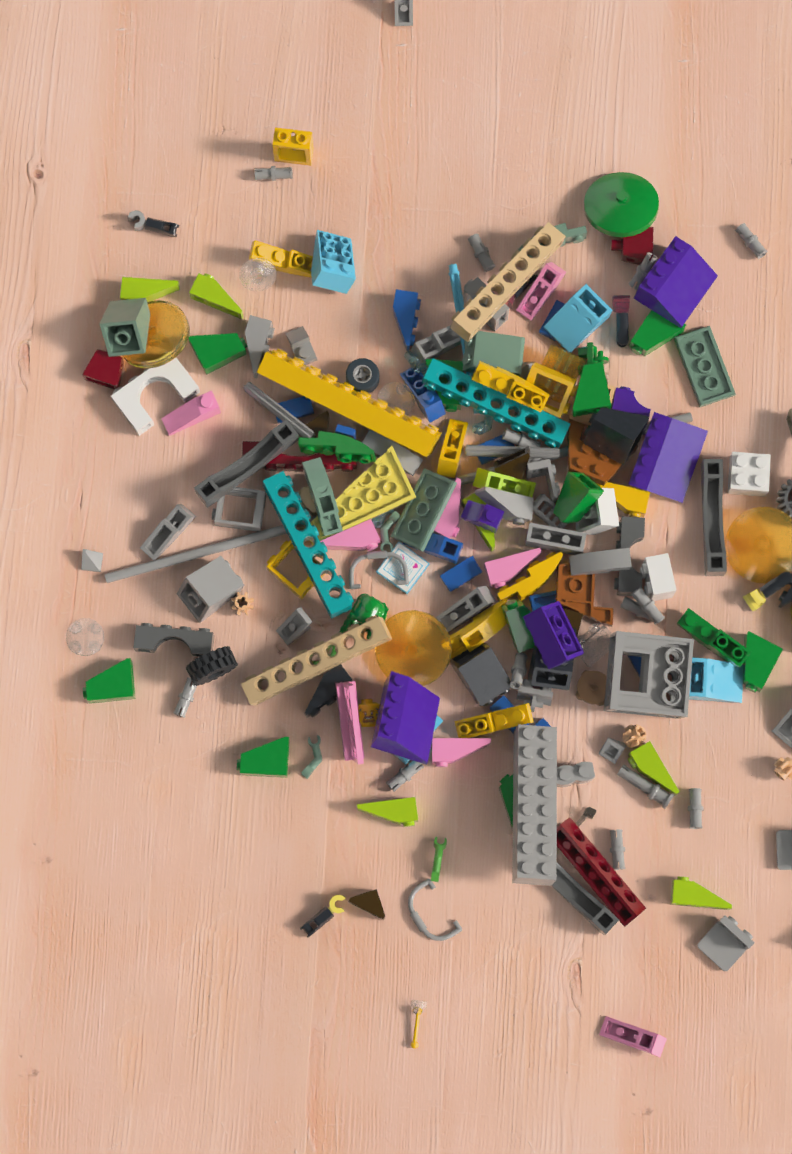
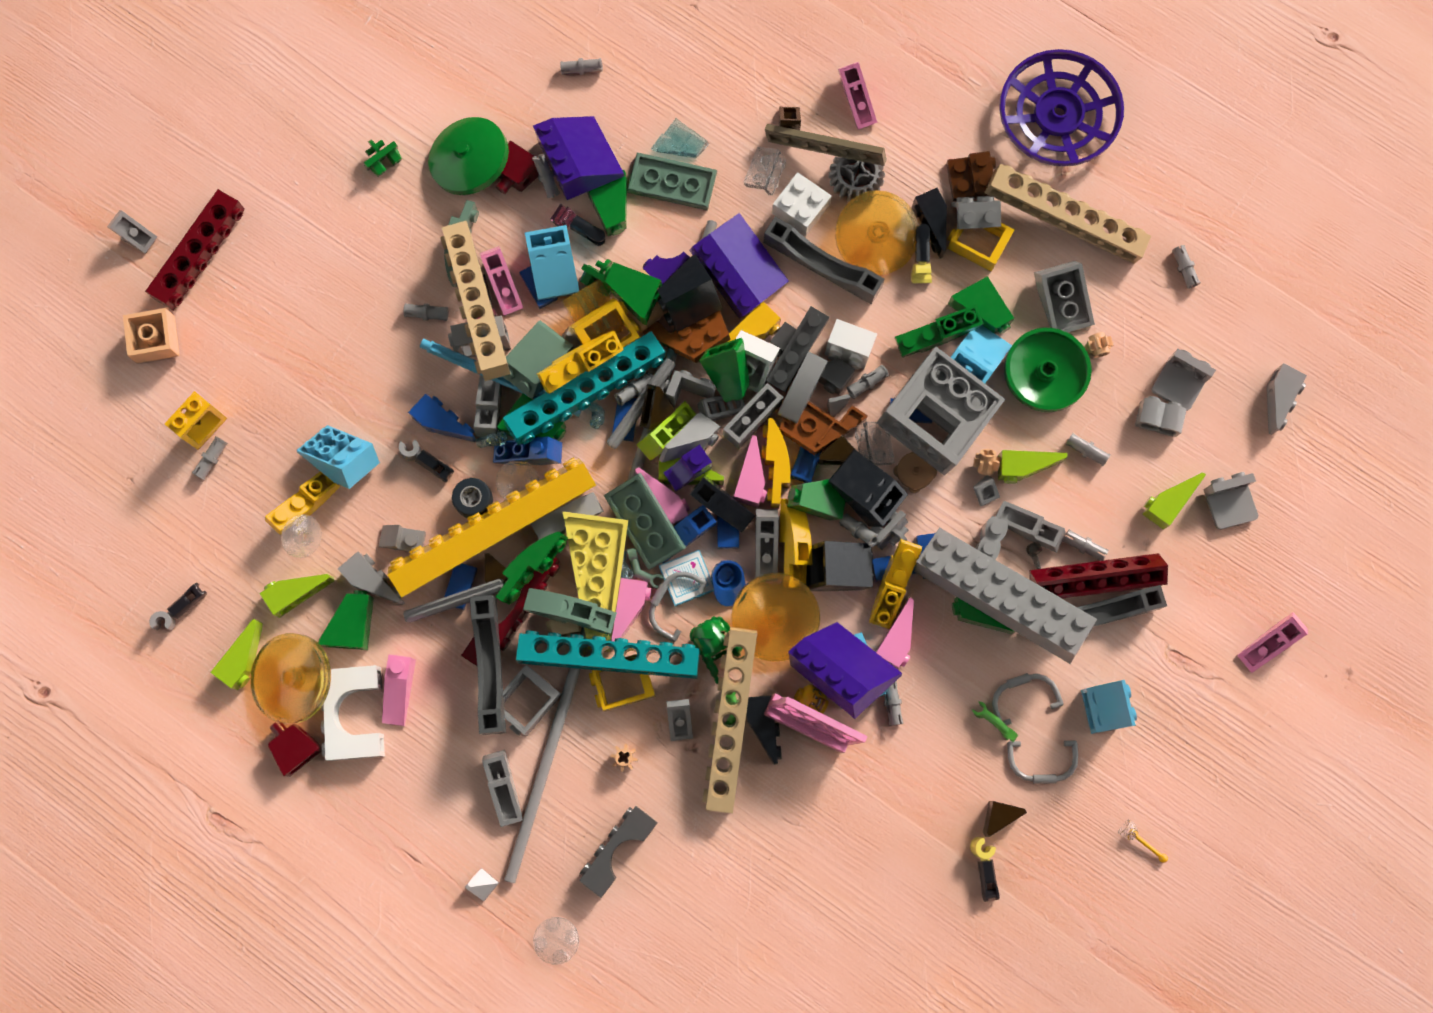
camera: 60 degrees left, 0 degrees up
(112, 684) = (623, 943): green slope -> none
(126, 327) = (265, 700): sand green slope -> none
(185, 698) = (683, 874): light grey pin -> none
(210, 588) = (588, 780): light grey slope -> none
(211, 665) = (670, 828): black tyre -> none
(266, 760) = (797, 831): green slope -> none
(309, 769) = (826, 779): sand green arm -> none
(335, 72) = (151, 335): none -> light nougat brick
(347, 431) = (519, 547): blue tile -> none
(369, 324) = (425, 460): none -> black piece
(397, 811) = (924, 733): lime slope -> none
(418, 597) = (727, 581): none -> blue cap
(428, 53) = (184, 252): none -> dark red brick
(452, 448) = (600, 457): yellow slope -> none
(472, 556) = (722, 504): none -> black slope
(481, 860) = (1025, 678): none -> light grey piece
(498, 932) = (1109, 706): none -> medium azure slope
(553, 635) = (851, 474): dark purple slope -> none
(587, 146) = (374, 163): none -> green hips
(605, 799) = (1032, 526): none -> light grey slope
(606, 597) = (836, 404): none -> light grey slope
(642, 539) = (797, 349): none -> dark grey arch
(647, 605) = (871, 370): light grey pin -> none
(653, 791) = (1048, 477): light grey pin -> none
(738, 739) = (1047, 369): none -> green dish
(741, 352) = (680, 141): none -> clear light blue slope
(758, 849) = (1160, 416): none -> light grey brick
(760, 430) = (765, 169): none -> clear bracket

